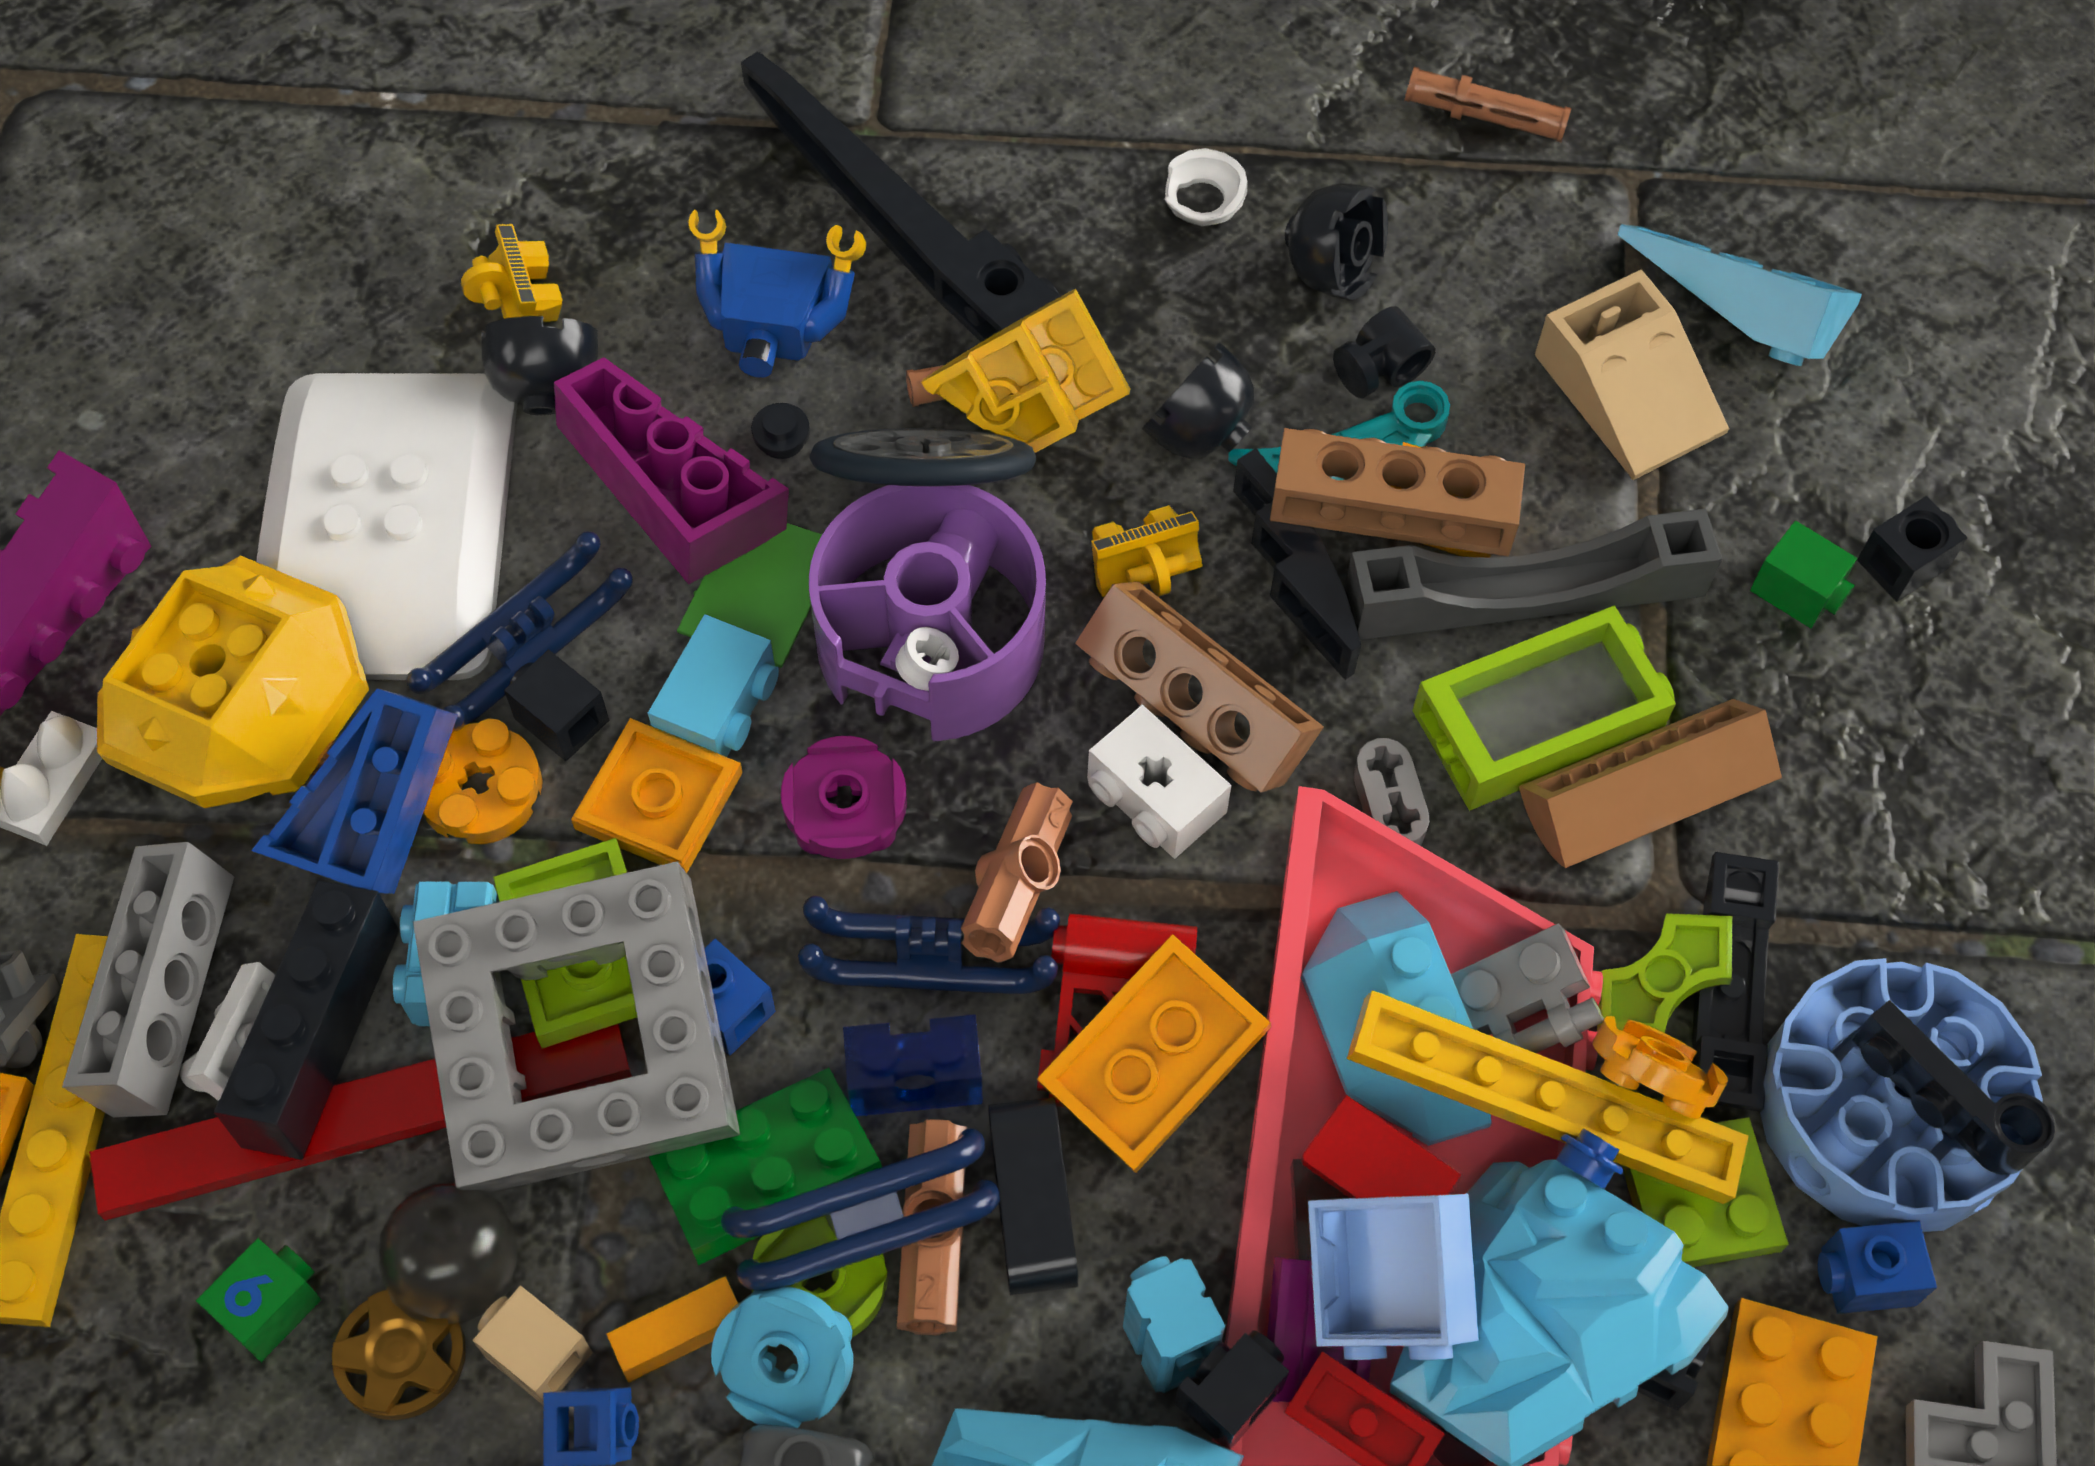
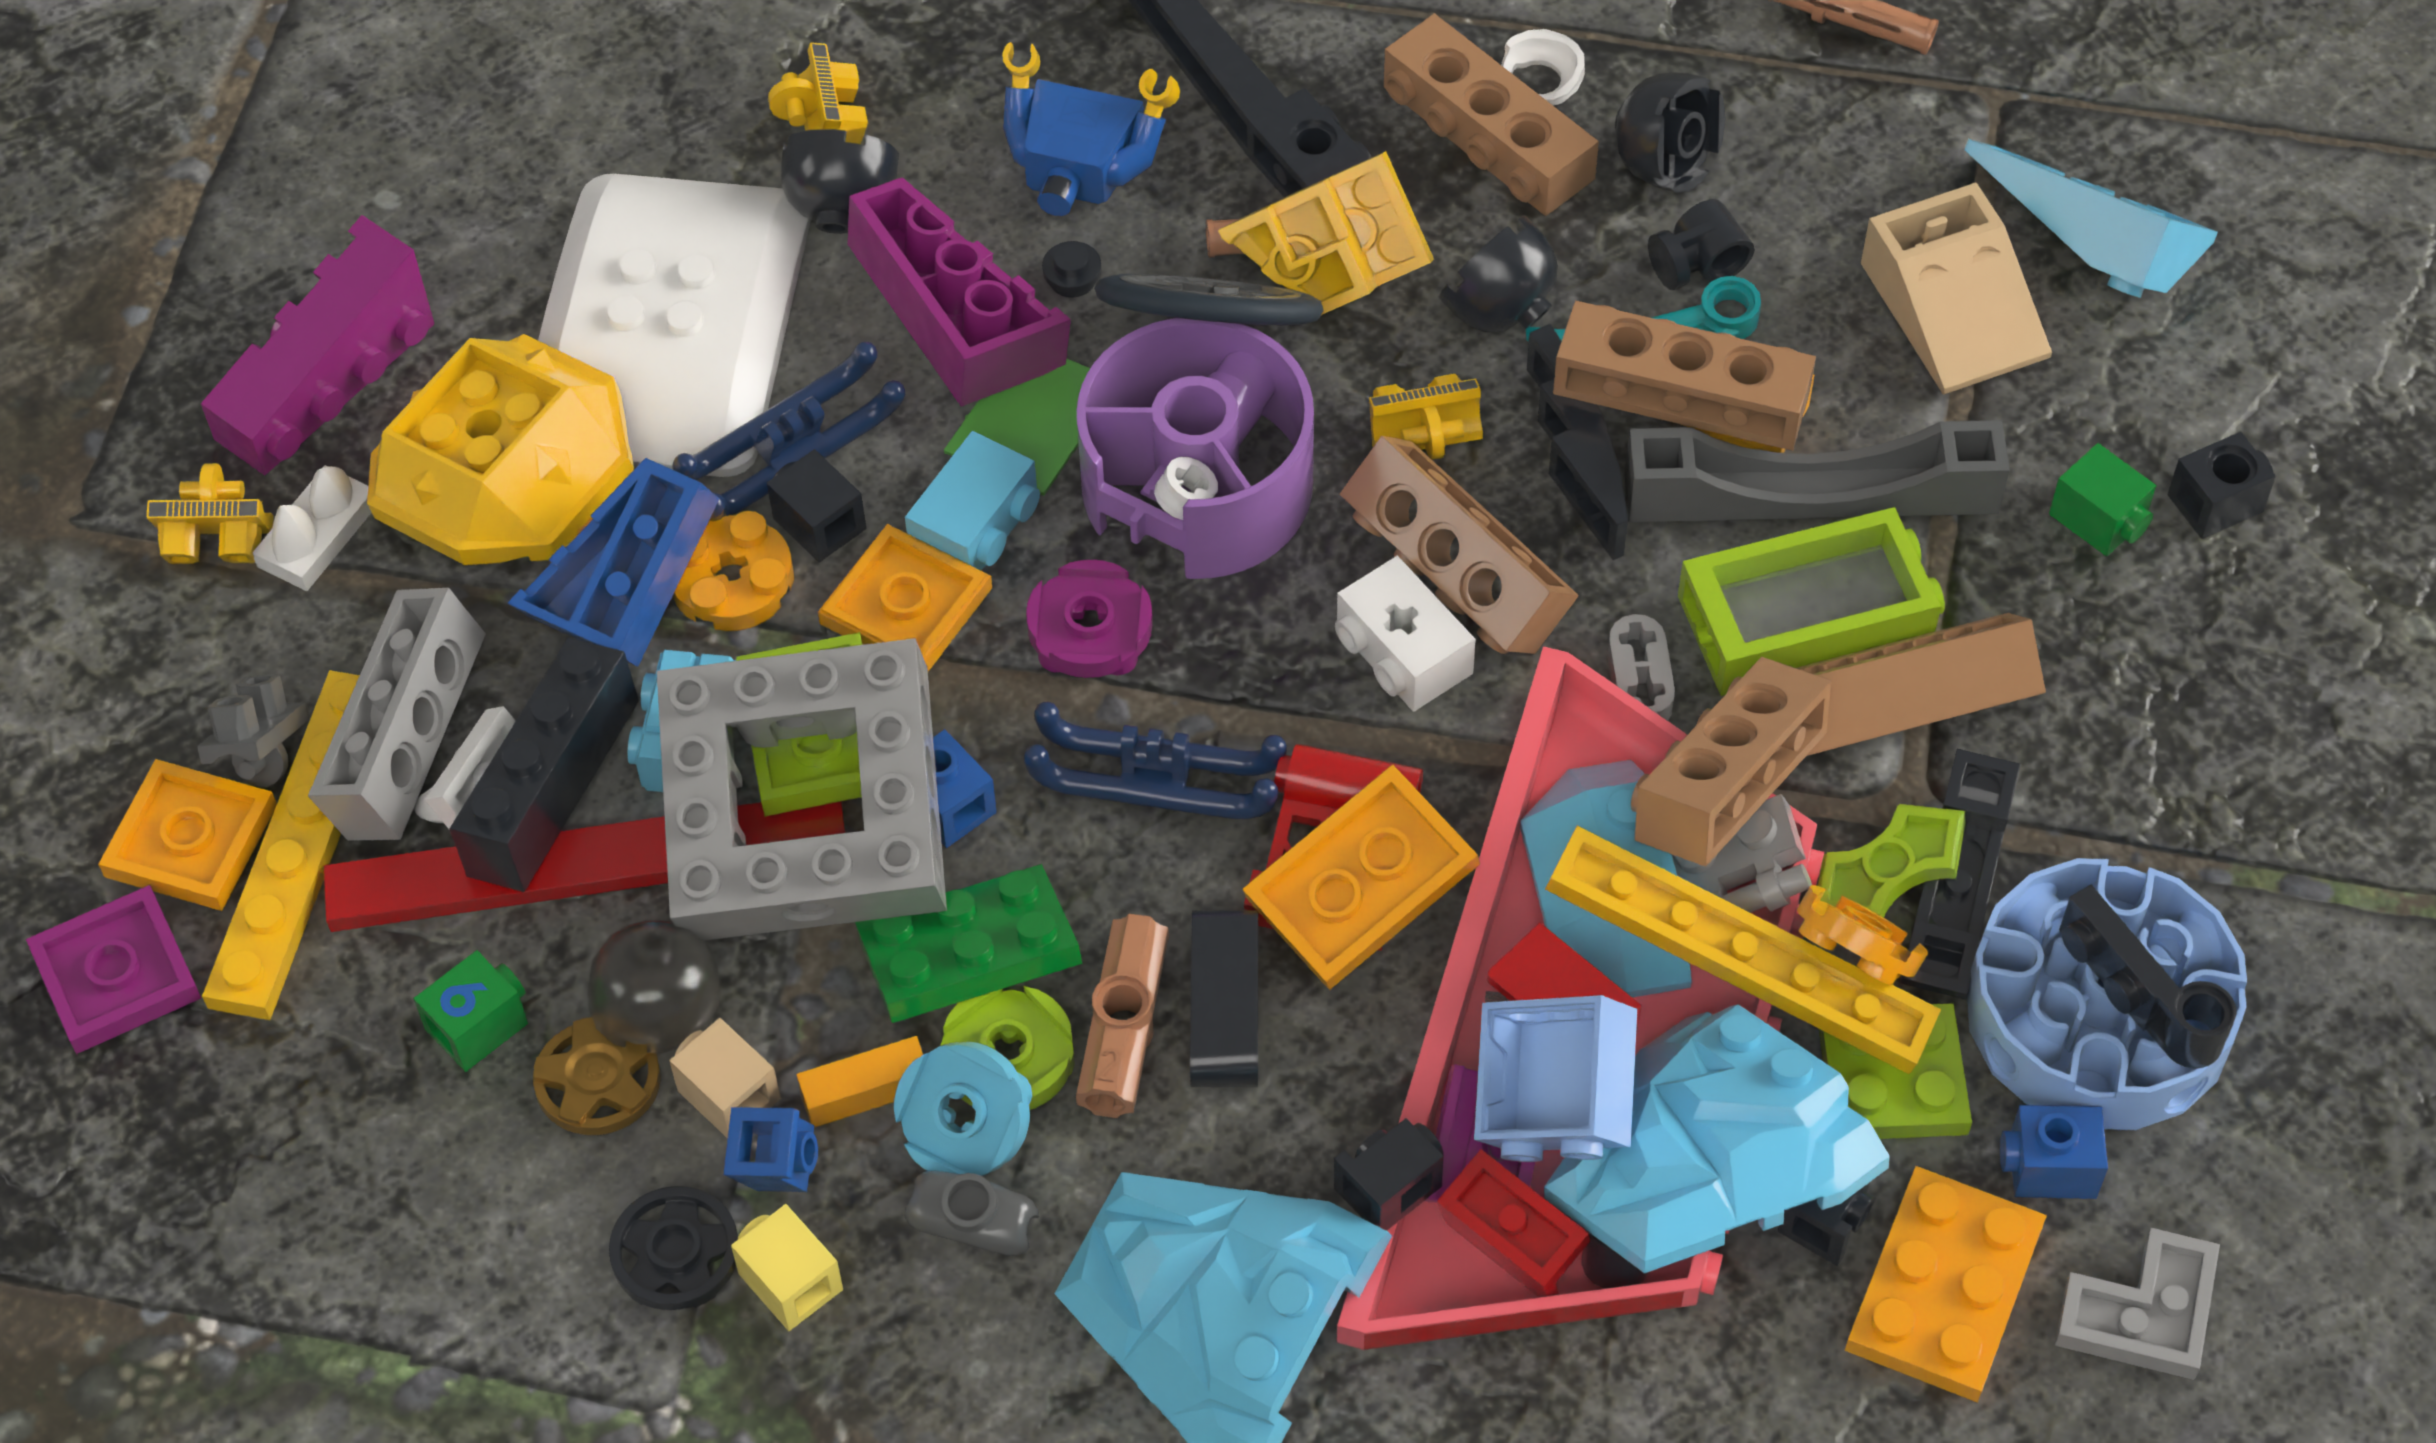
camera: 10 degrees right, 5 degrees down
(863, 1215) = (1054, 984): dark blue piece -> none
(880, 1059) = (1155, 854): clear blue brick -> none
(1017, 872) = (1250, 700): nougat piece -> none
(1164, 238) = (1490, 114): none -> medium nougat brick
(1170, 1321) = (1337, 1108): medium azure brick -> none
(1507, 898) = (1731, 761): none -> medium nougat brick
(1590, 1157) = (1772, 1003): blue plate -> none

